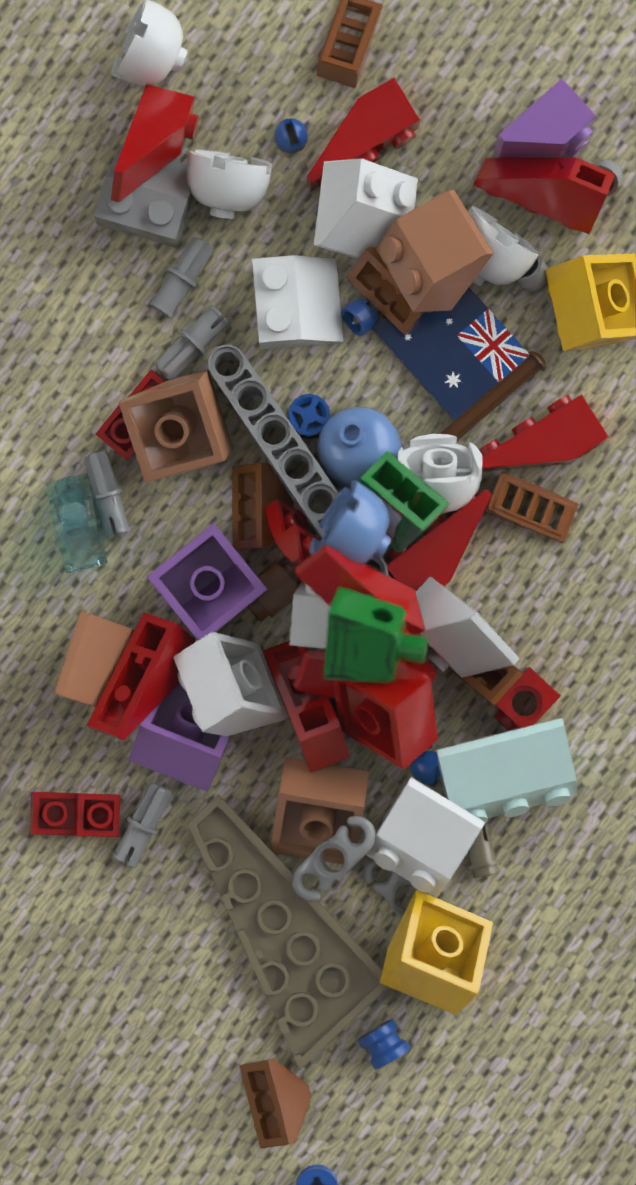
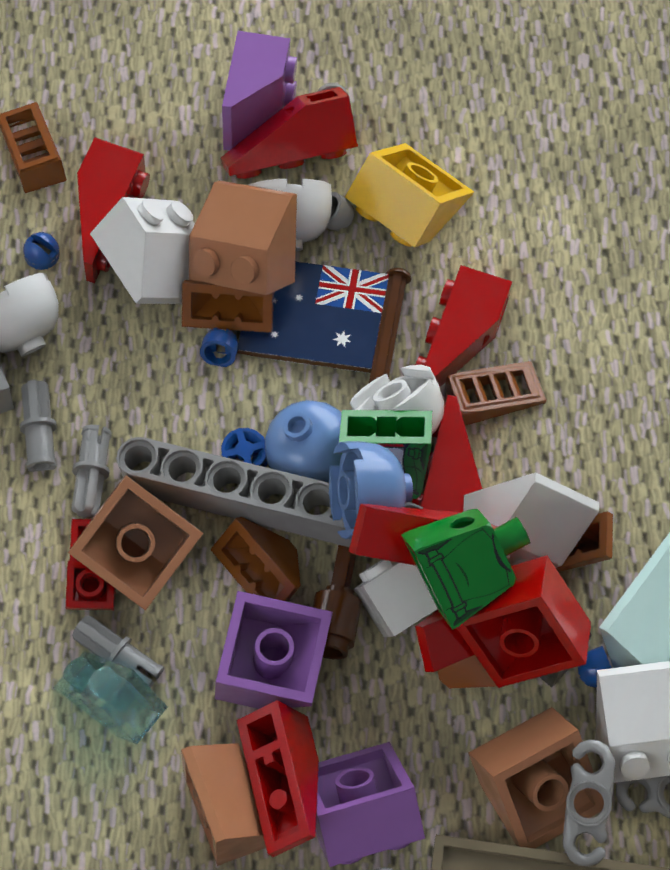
camera: 40 degrees left, 20 degrees down
(229, 685) = (365, 726): white slope -> none
(289, 531) = (320, 552): red slope -> none
(297, 301) = (153, 373): white slope -> none
(309, 713) = (460, 695): red slope -> none
(538, 688) = (633, 529): red brick -> none

